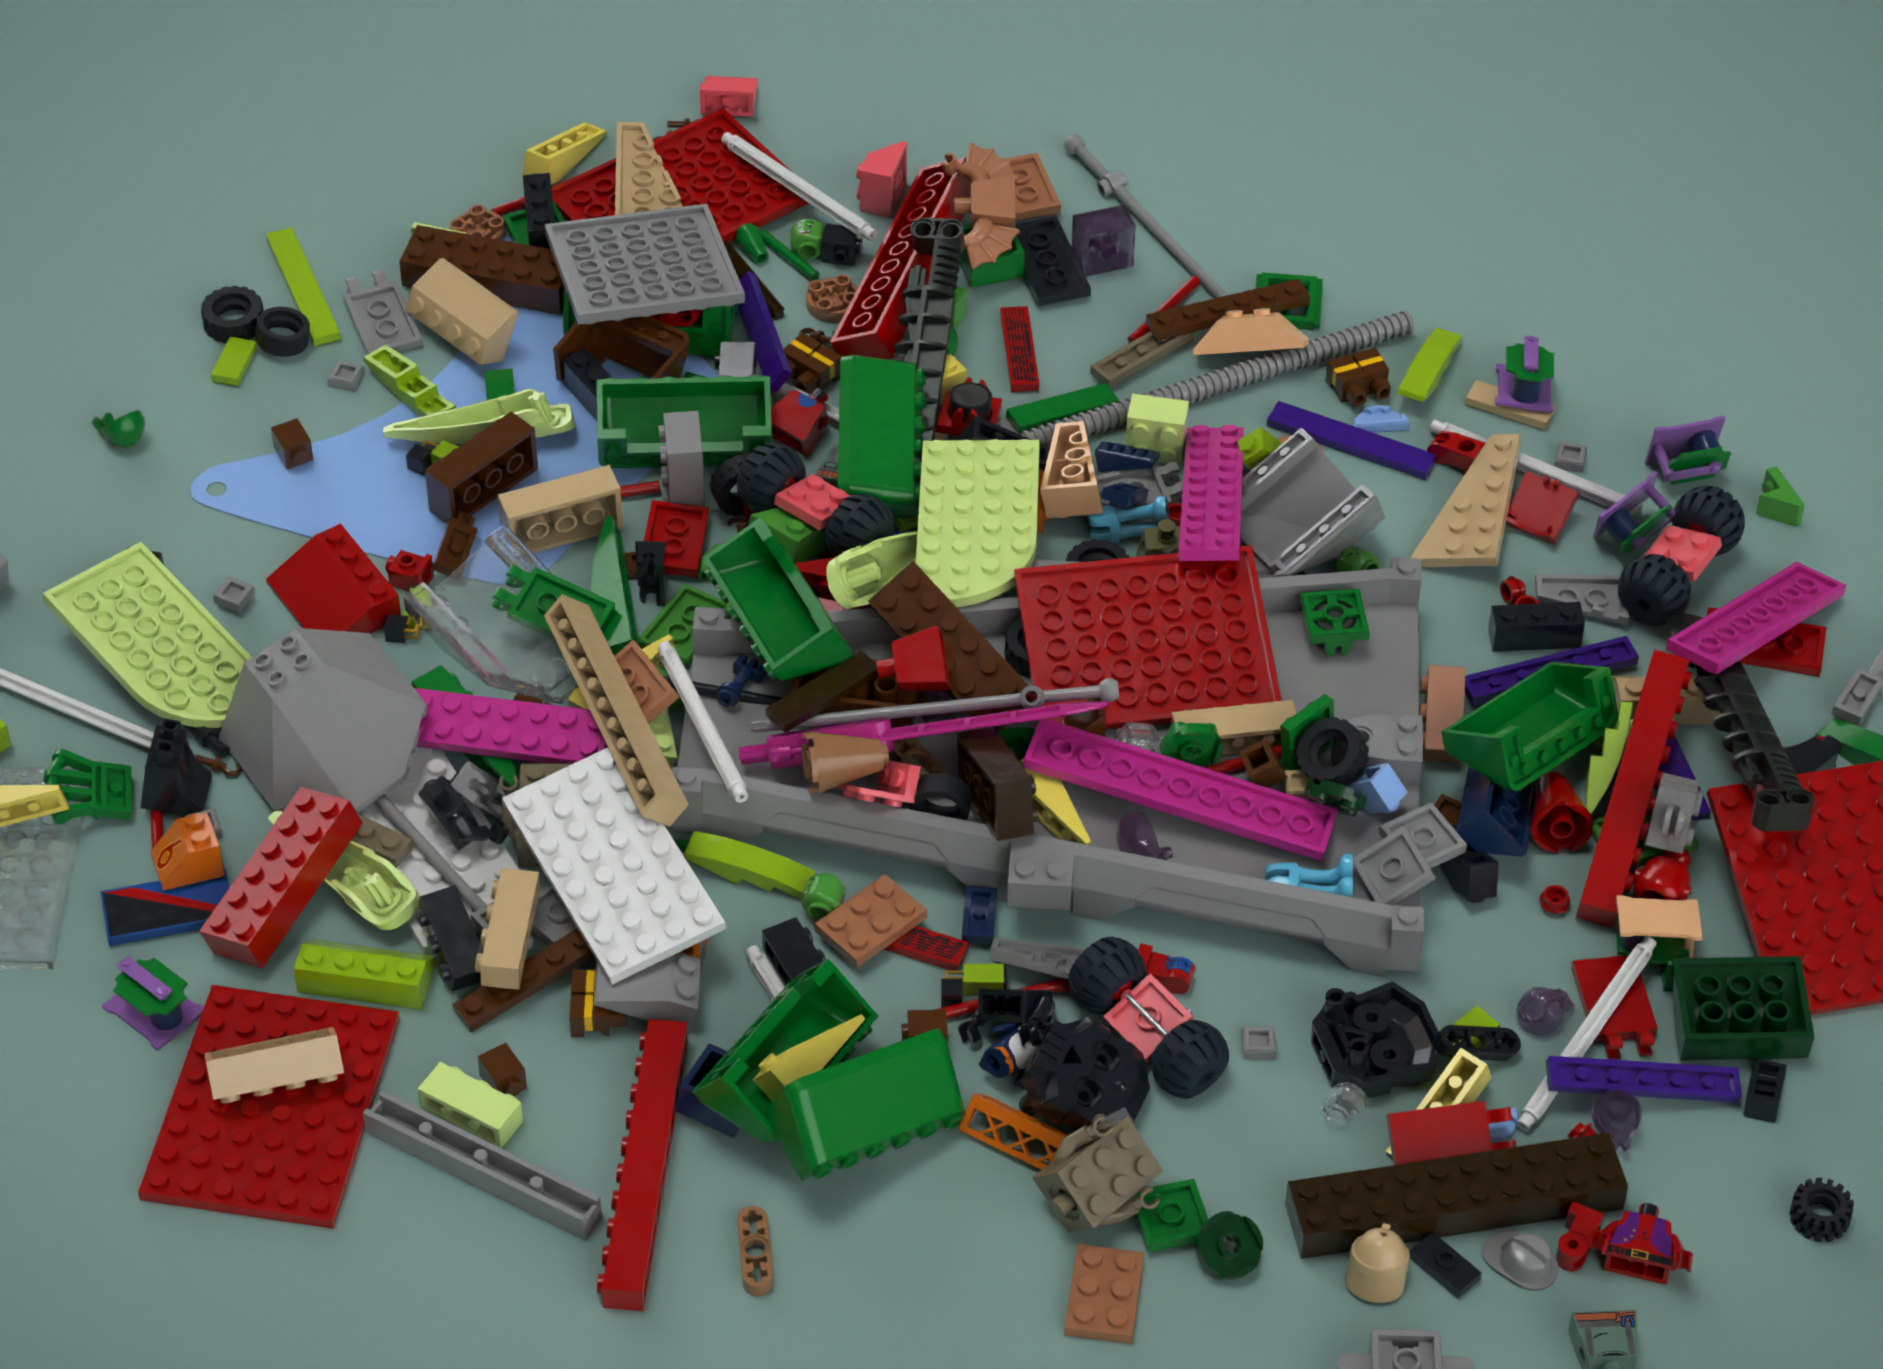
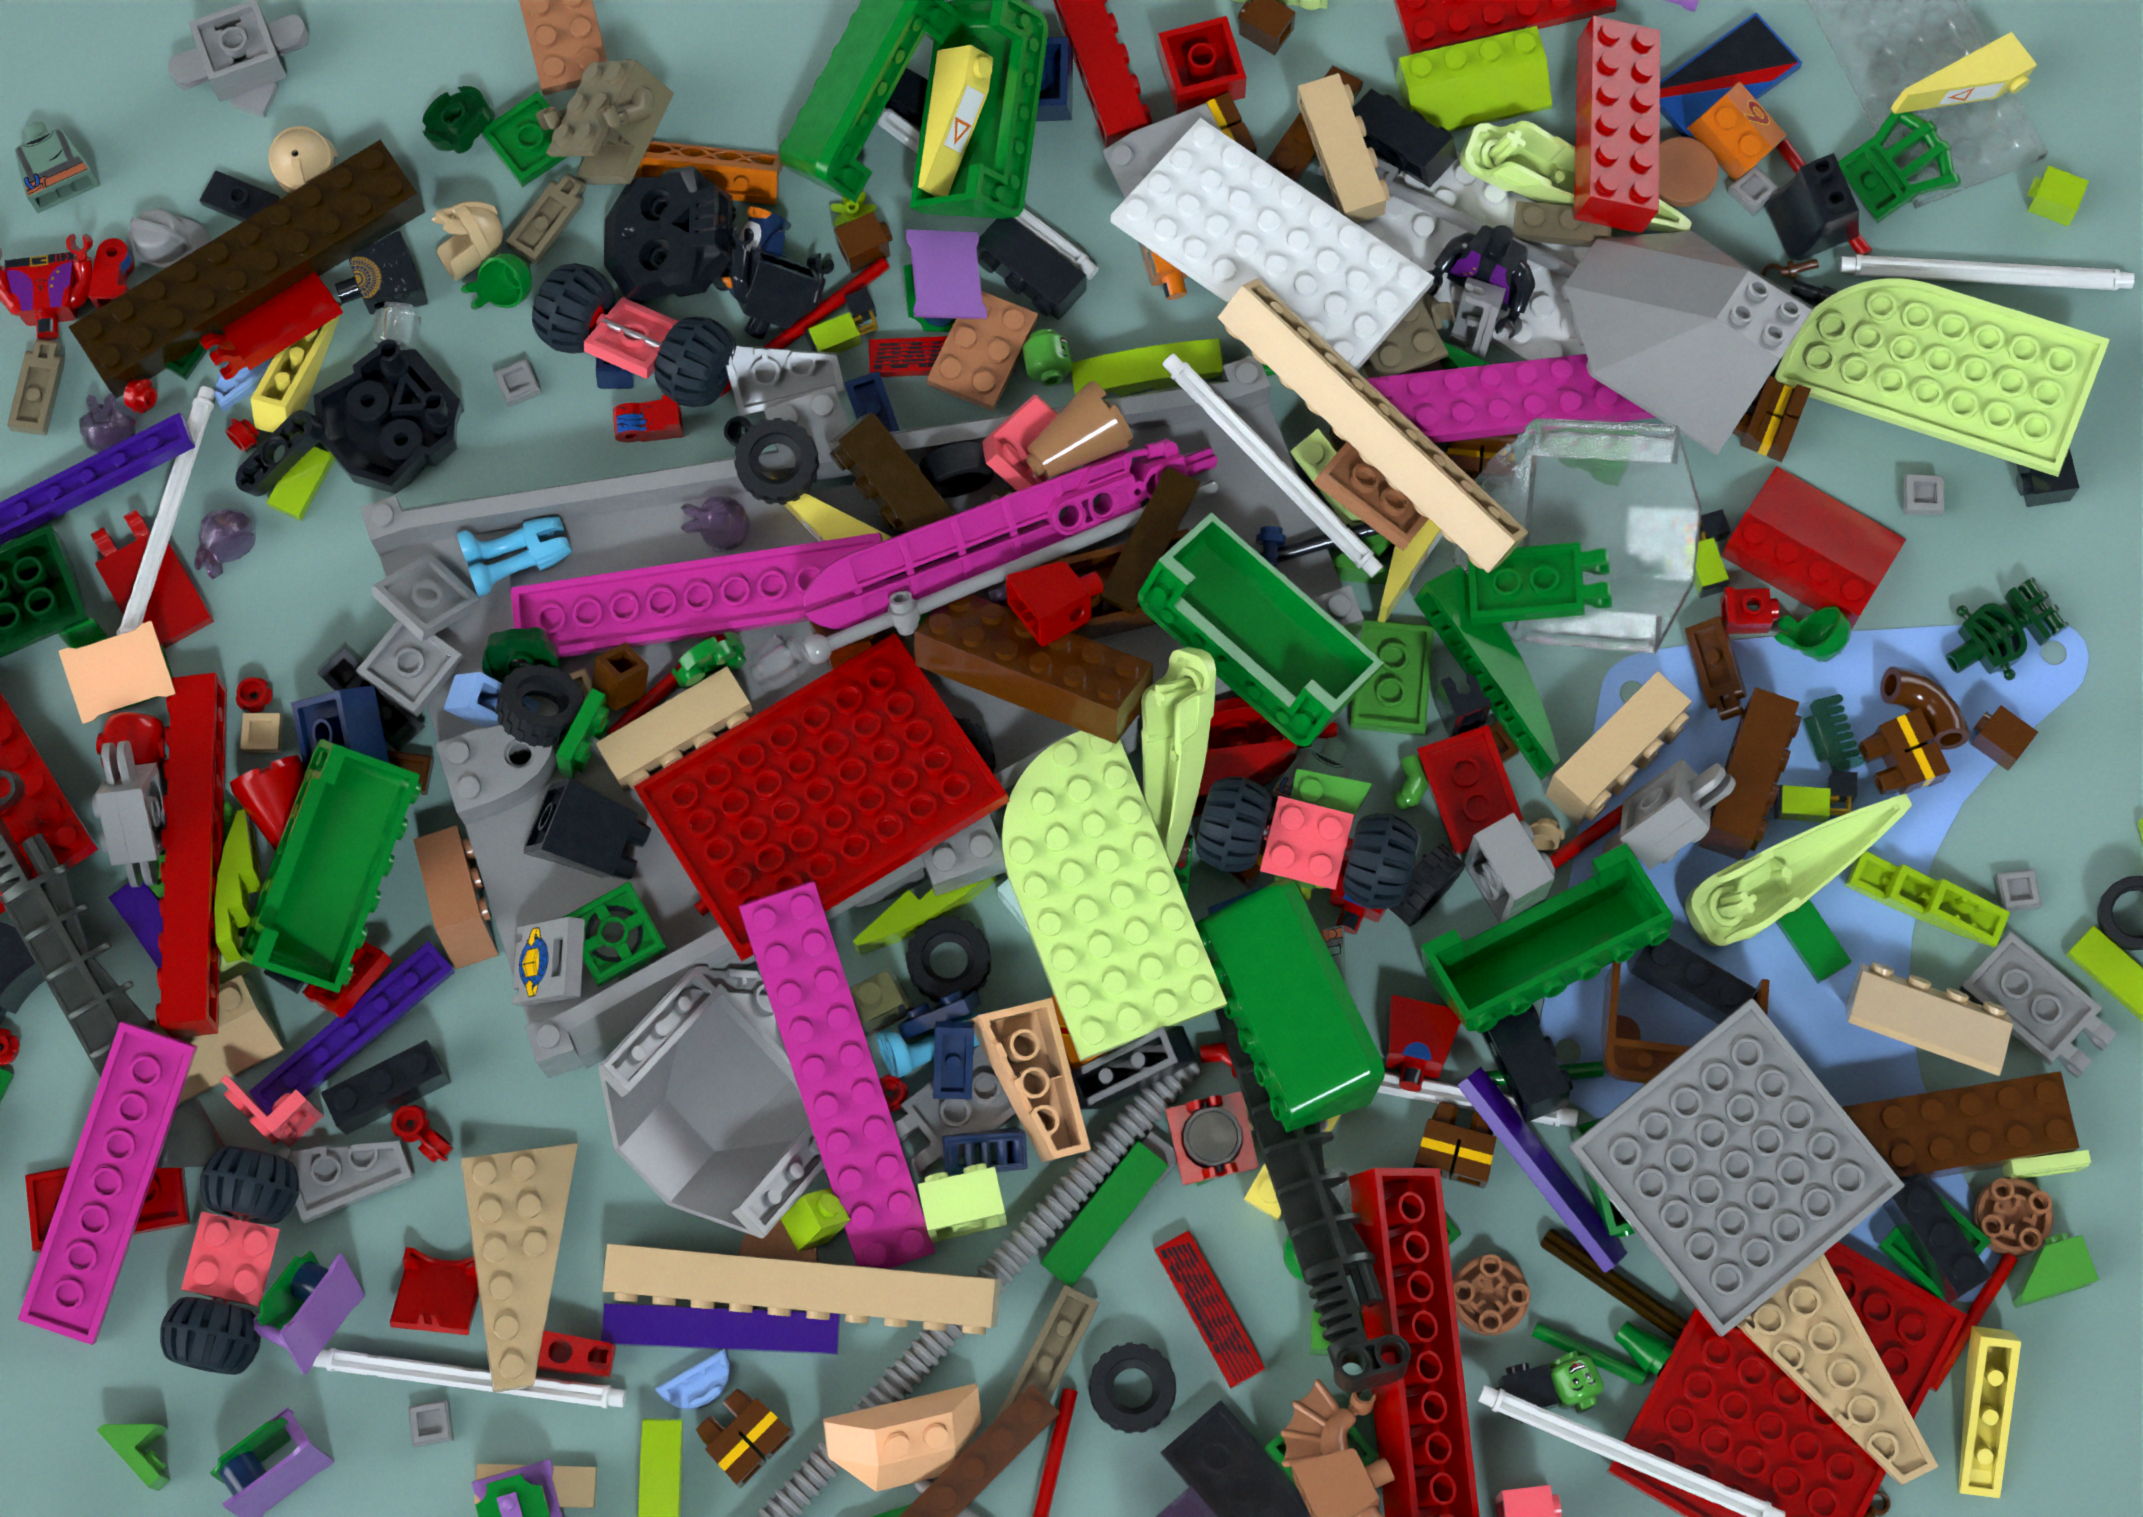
camera: 160 degrees right, 25 degrees up
(240, 845) = (1686, 171): none -> nougat tile
(254, 493) = (1986, 636): none -> dark green torso
(326, 477) = (1915, 691): none -> reddish brown cylinder
(362, 456) = (1907, 754): none -> reddish brown hips
(374, 534) = (1818, 635): none -> green piece
(403, 491) = (1824, 734): none -> clear green piece
(474, 189) = (2056, 1270): none -> bright green slope
(551, 449) = (1670, 812): none -> light grey brick
(577, 1051) = (1201, 63): none -> red brick
(638, 501) = (1547, 834): none -> tan plate
(817, 335) = (1474, 1216): reddish brown hand -> none
(881, 965) = (943, 278): none -> medium lavender piece
(1082, 818) = (773, 432): none -> black tyre
(1087, 931) = (733, 429): none -> black hinge
(1091, 309) = (1146, 1360): none -> black tyre
(1117, 529) = (952, 1007): none -> dark blue plate
(1187, 1145) = (547, 218): none -> dark tan hinge
(1238, 1111) = (501, 281): none -> green piece
(1257, 1142) = (474, 239): none -> tan helmet
(1259, 407) = (802, 1285): none -> tan brick
(1341, 676) = (585, 831): none -> black hips
(1341, 1146) = (383, 275): none -> black torso
(1395, 618) = (539, 961): none -> light grey container
(1503, 1080) = (242, 434): none -> red plate
(1556, 870) = (261, 733): none -> tan plate
(1623, 617) = (290, 1116): none -> coral bracket
(1671, 1173) = (37, 388): none -> dark tan hinge

